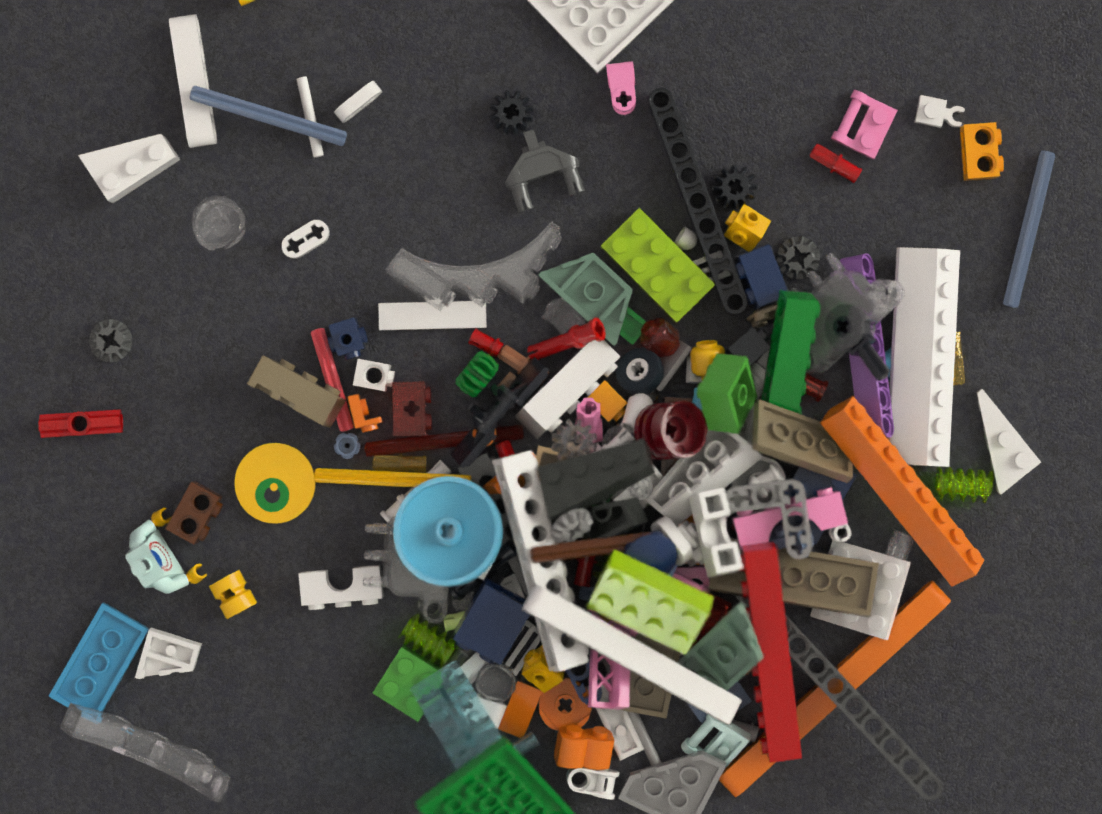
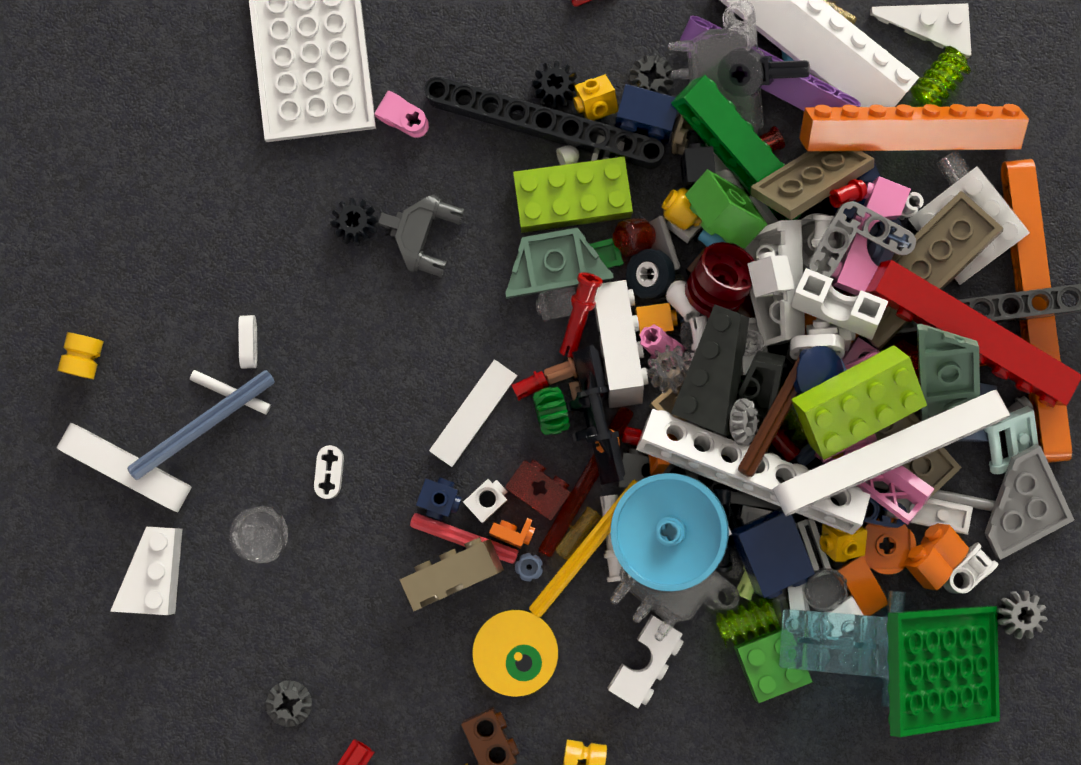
camera: 50 degrees left, 5 degrees down
(513, 274) = (448, 386): clear arch -> none
(699, 464) = (770, 275): none -> white brick
(810, 479) = (854, 191): none -> red pin

